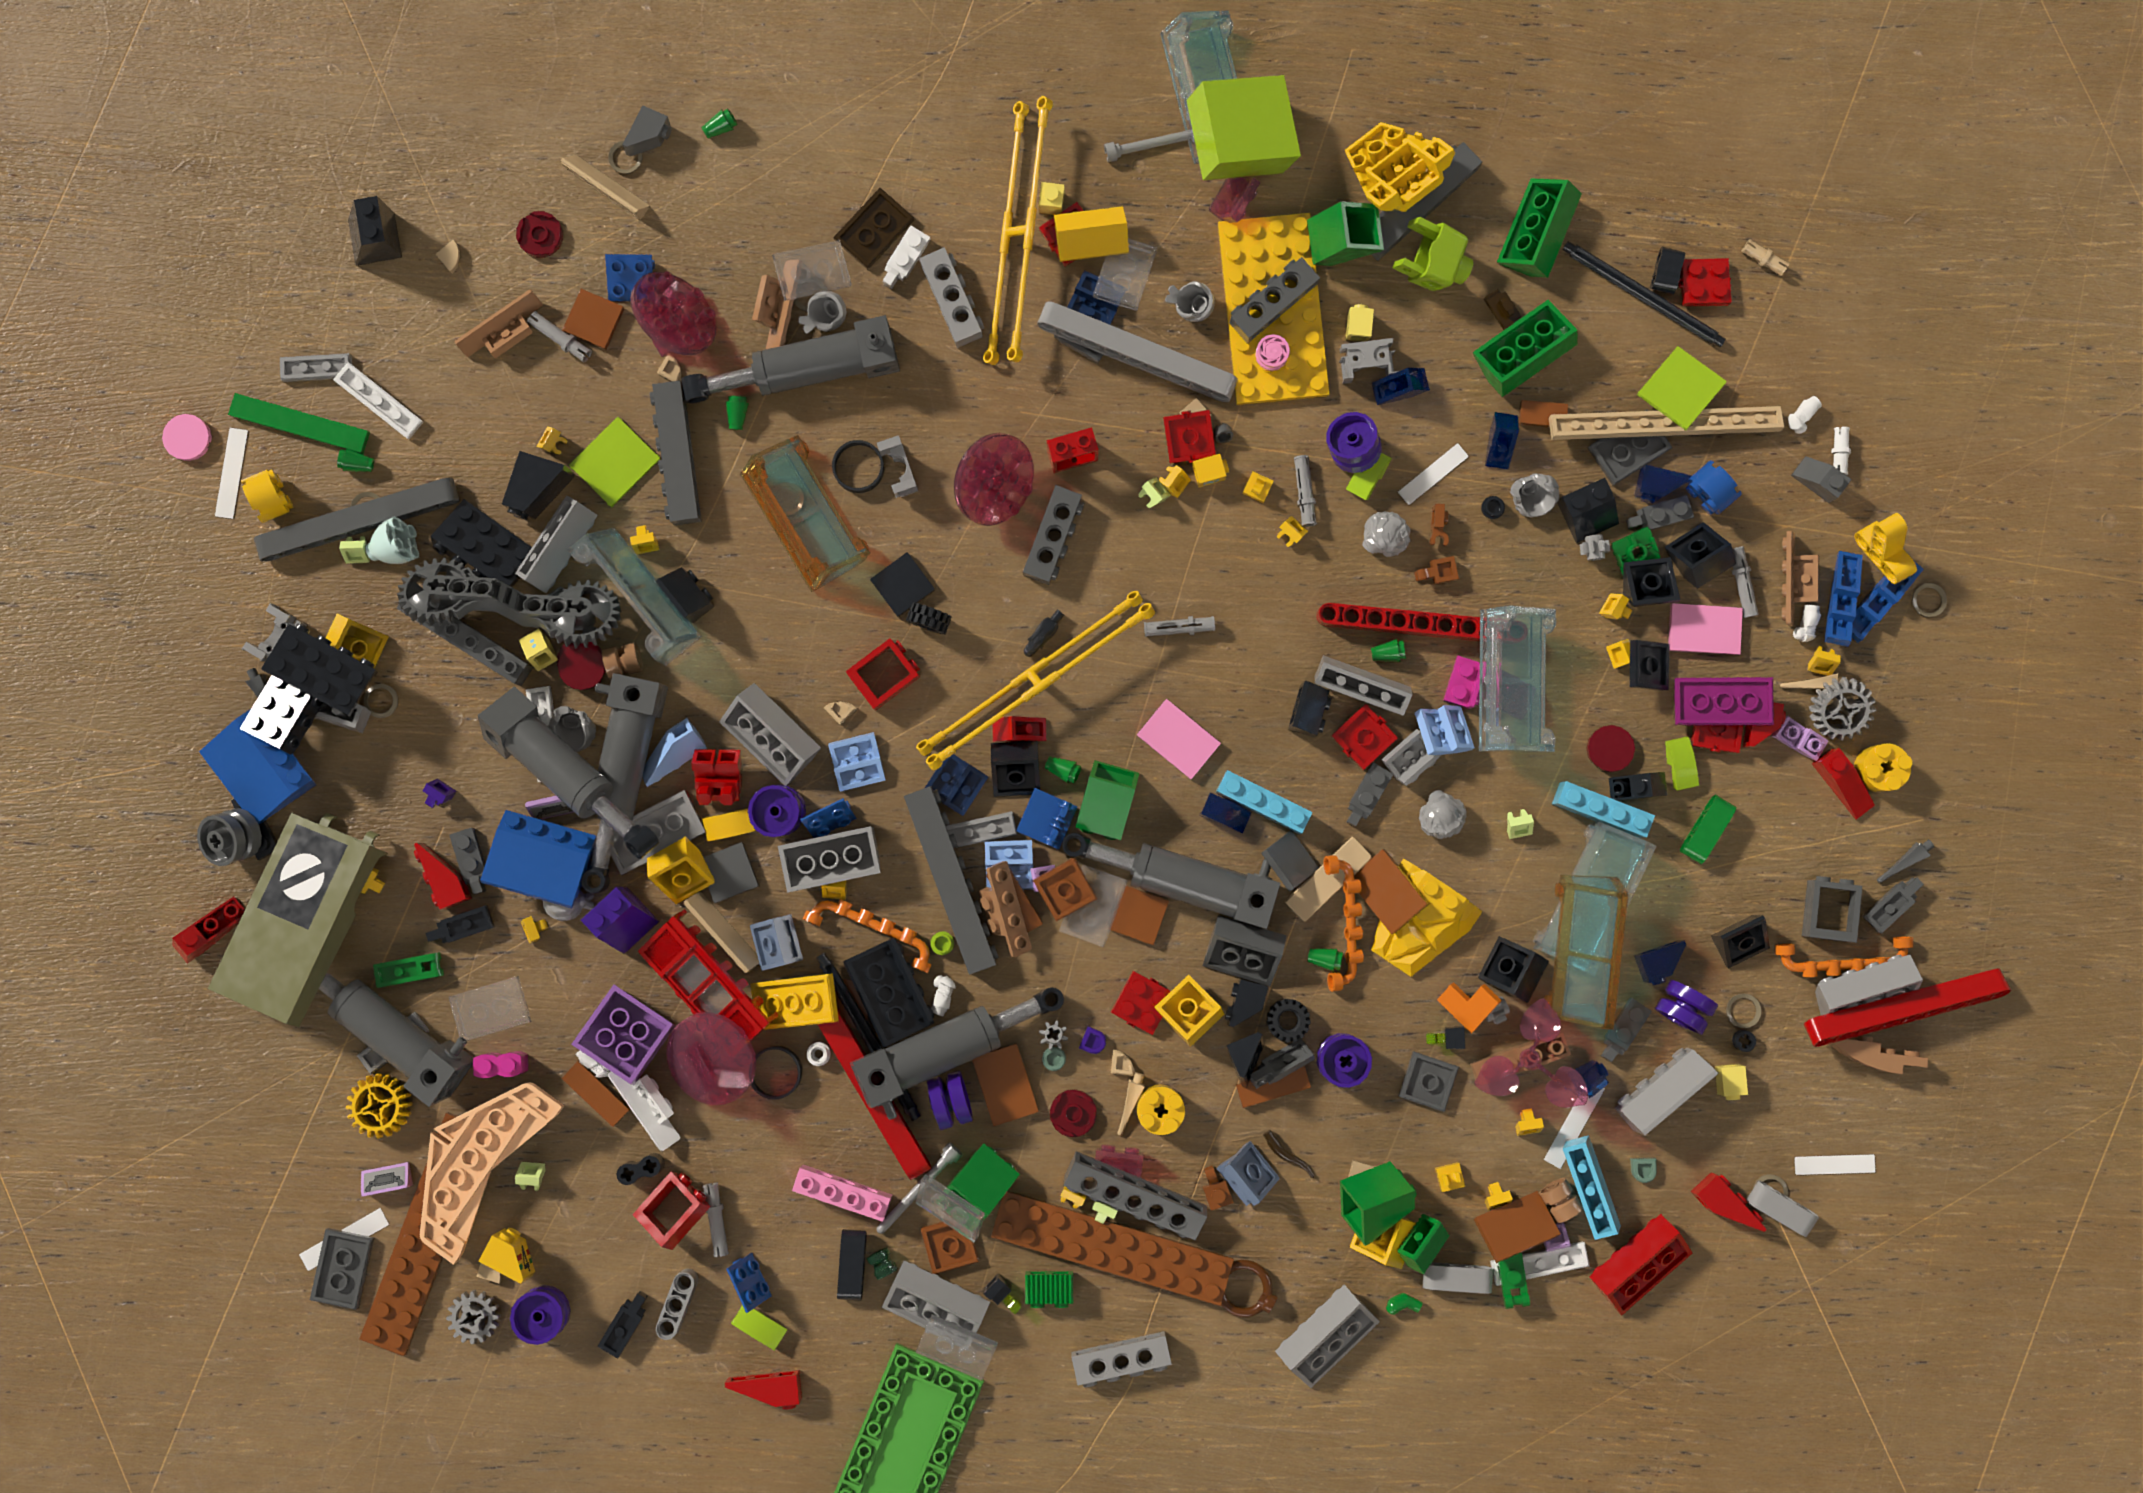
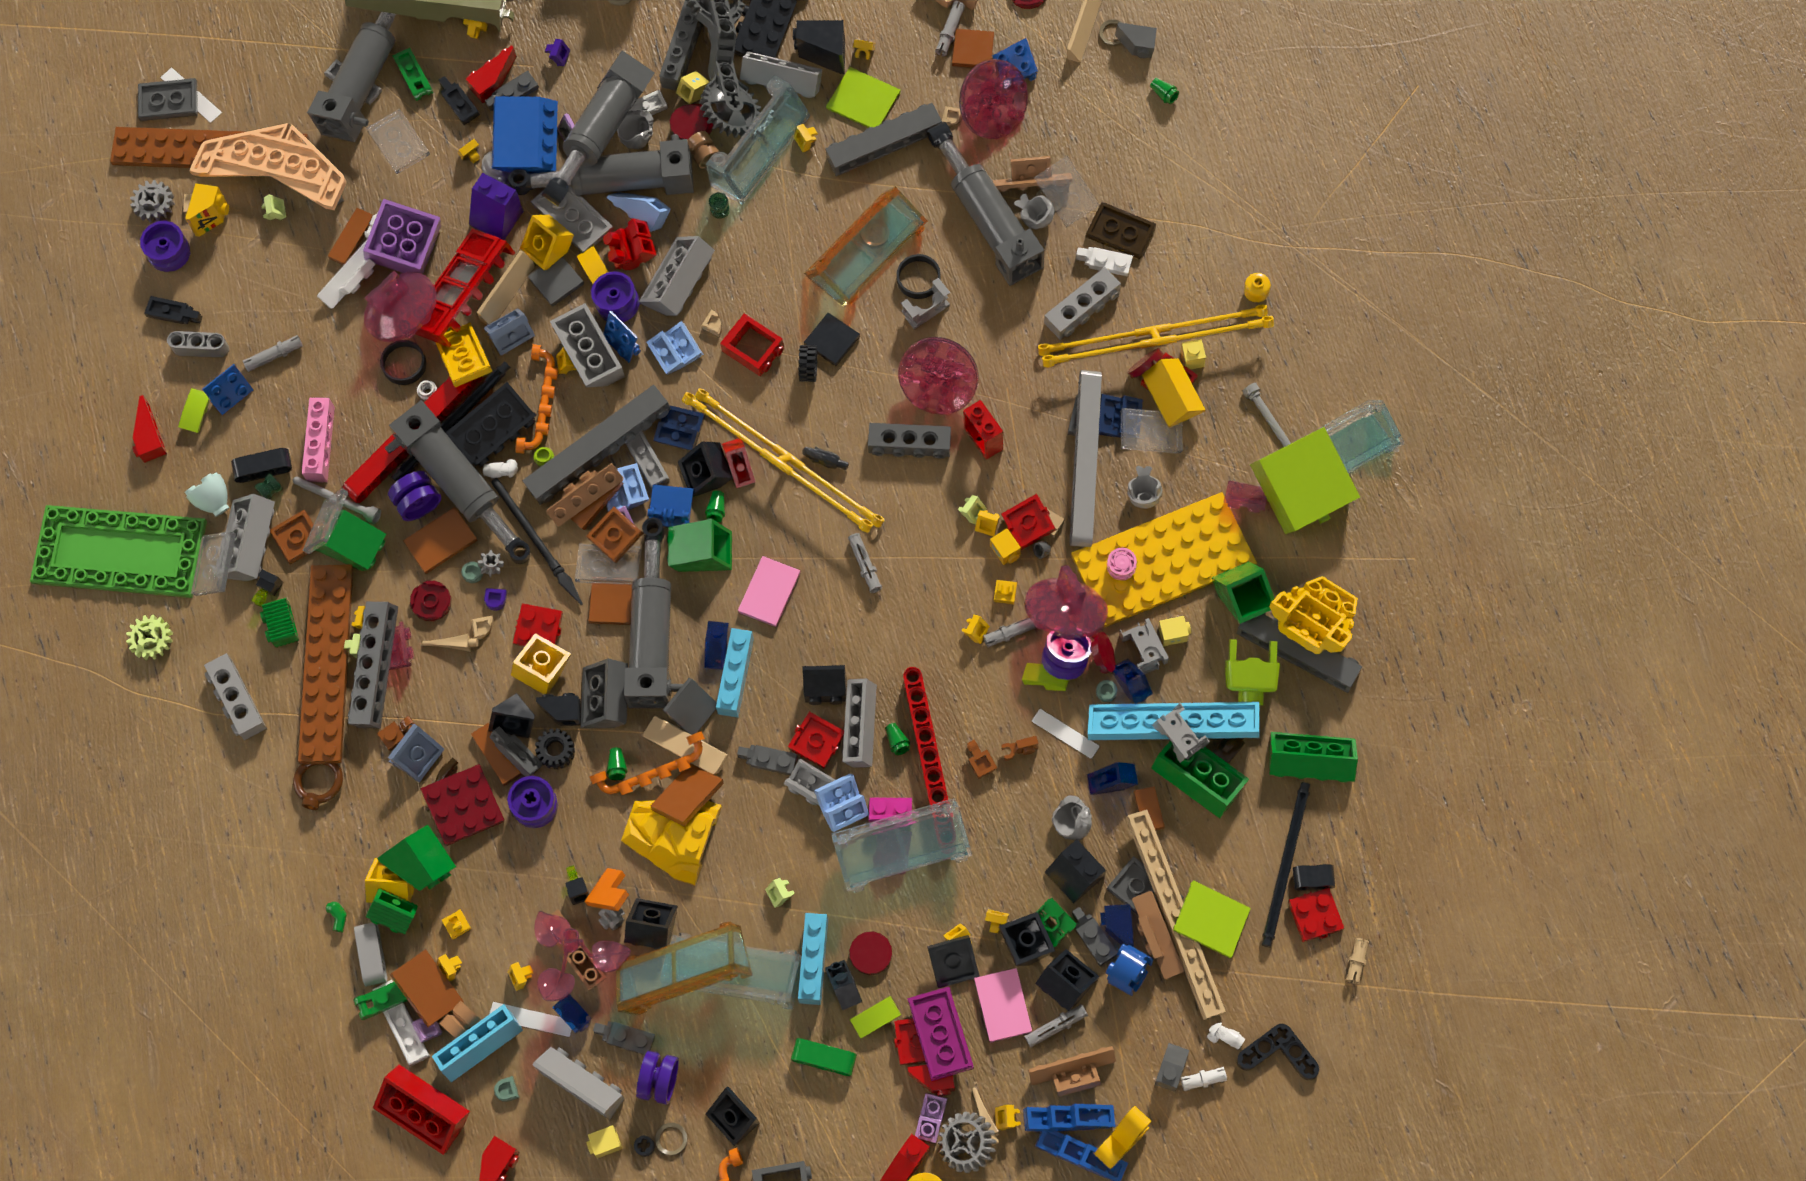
camera: 75 degrees right, 15 degrees down
(382, 1114) = (295, 95): yellow gear -> none
(386, 1179) = (245, 108): slope -> none
(500, 1064) = (355, 160): dark pink brick -> none
(640, 1169) = (299, 285): black axle -> none
(654, 1227) = (279, 333): red window -> none
(685, 594) = (770, 177): black slope -> none
(694, 661) = (720, 201): none -> clear green wheel
(736, 411) = (932, 173): green cone -> none
(871, 1332) = (210, 495): none -> light aqua piece
(995, 103) = (1257, 287): none -> yellow head
(1013, 1431) = (148, 646): none -> yellowish green gear
(1047, 253) = (1145, 363): none -> dark red tile
(1094, 959) = (558, 571): none -> black piece
(1169, 1120) = (460, 671): yellow brick -> none
(1250, 327) = (1172, 561): dark grey brick -> none
(1306, 426) = (1065, 606): none -> clear pink bracket
(1322, 1137) = (462, 805): none -> dark red plate
(1326, 1336) = (293, 859): light grey slope -> none
(1365, 404) = (1103, 652): none -> dark red tile
(1386, 534) = (997, 706): light grey hair -> none
(1401, 416) = (1106, 691): none -> sand green tile
(1428, 1081) = (534, 882): dark grey tile -> none
(1442, 815) = (767, 823): light grey hair -> none
(1465, 354) = (1204, 719): none -> medium azure plate
(1487, 352) = (1179, 734): none -> light grey piece
(1493, 507) = (1051, 790): black plate -> none
(1595, 547) = (1043, 885): light grey gear -> none
(1659, 962) = (692, 1048): clear blue slope -> none
(1682, 448) = (1157, 935): none -> medium nougat bracket
(1808, 624) = (1041, 1095): white arm -> none
(1828, 361) = (1284, 1045): none -> black beam

